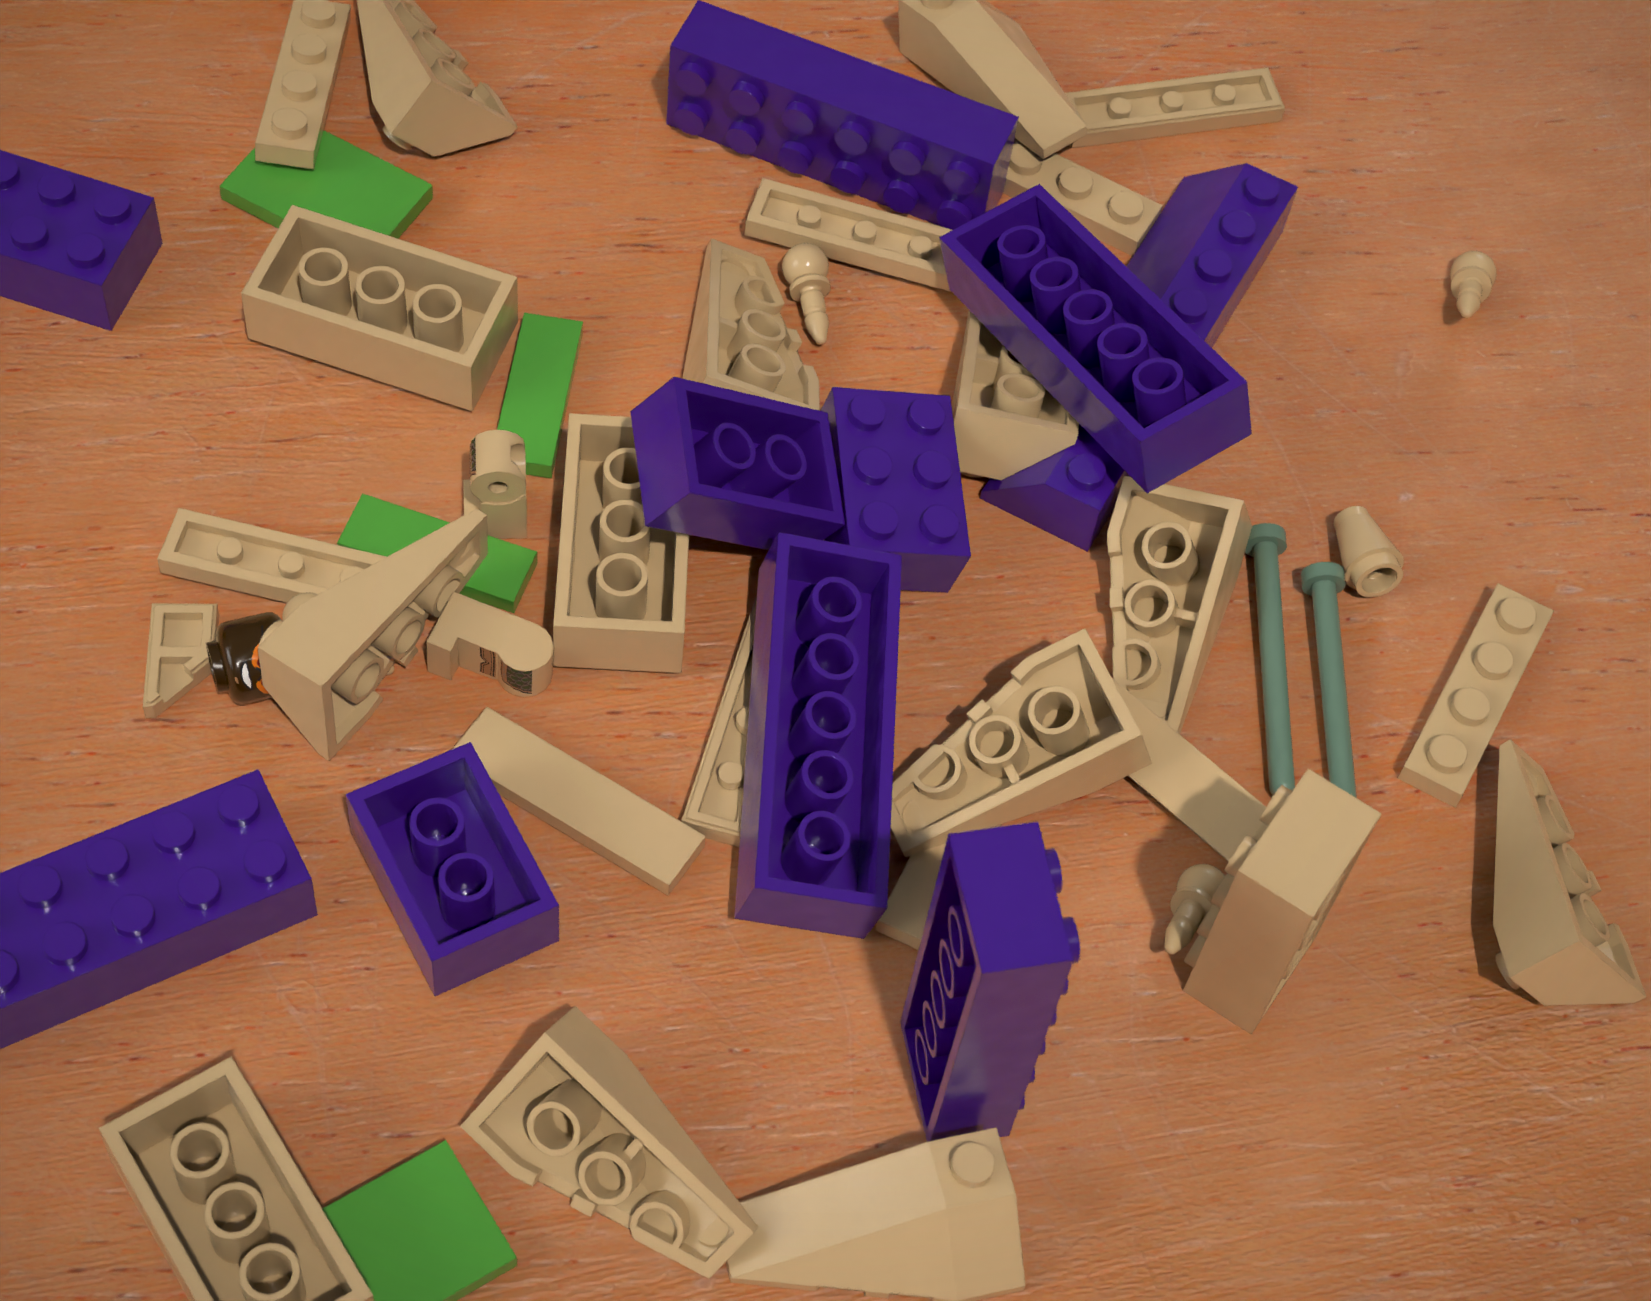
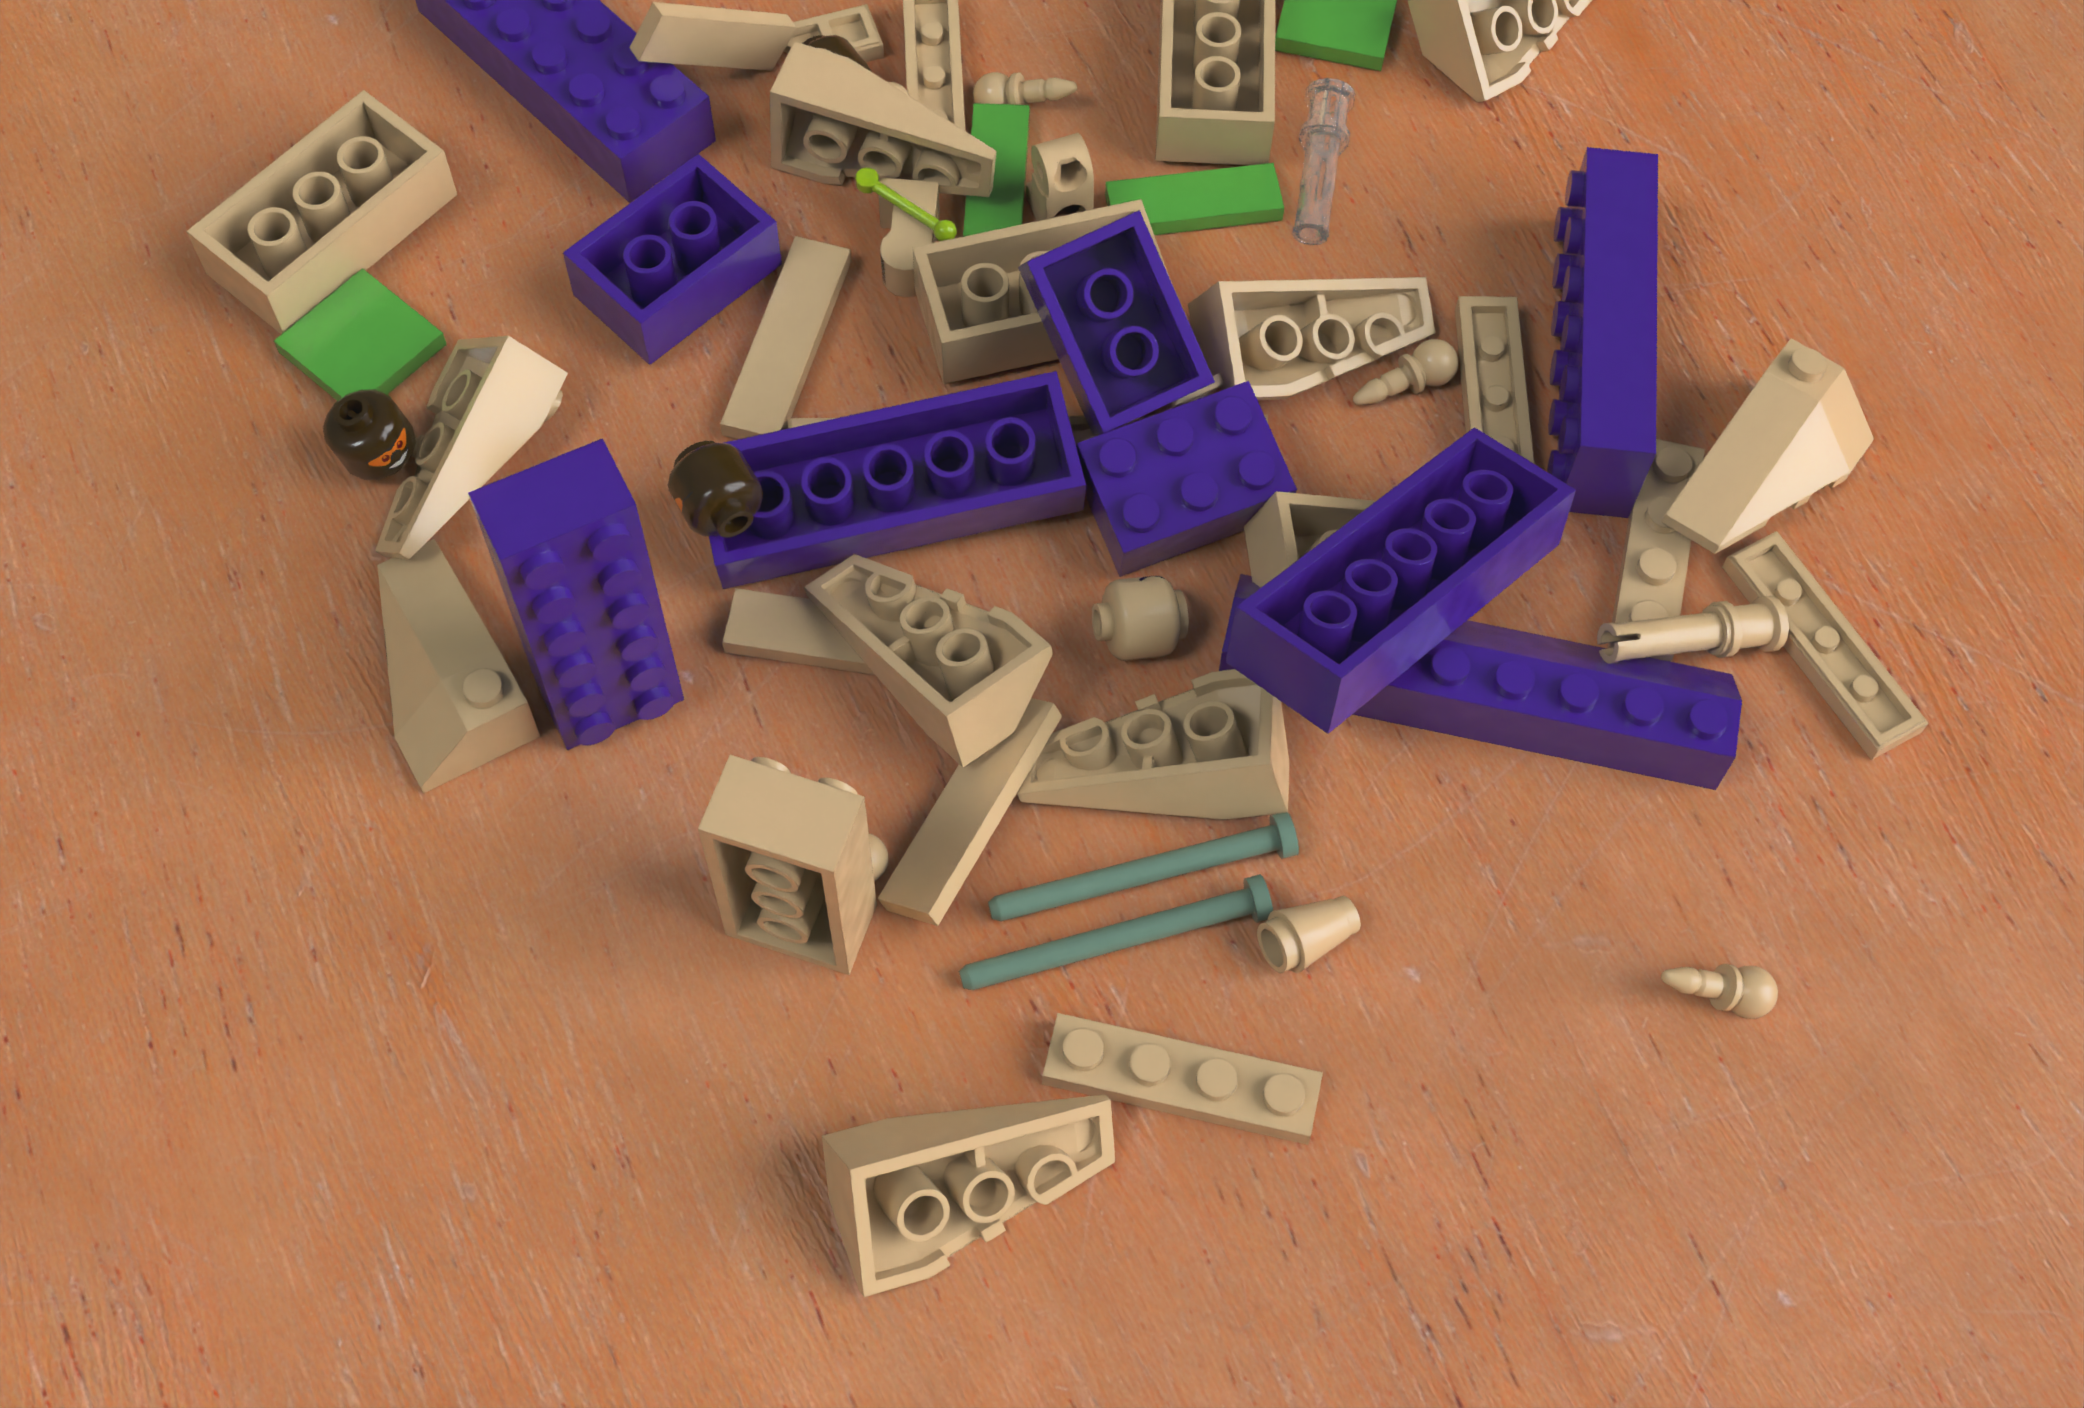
camera: 80 degrees right, 5 degrees up
(176, 744) = (712, 36): none -> tan tile
(329, 515) = (1001, 89): none -> tan bar
(431, 651) = (868, 182): none -> lime hinge
(538, 274) = (1323, 140): none -> clear pin
(600, 1248) = (369, 434): none -> dark brown head
(832, 864) = (715, 489): none -> dark brown head
(1021, 573) = (1140, 618): none -> tan head
(1154, 163) = (1718, 629): none -> tan pin

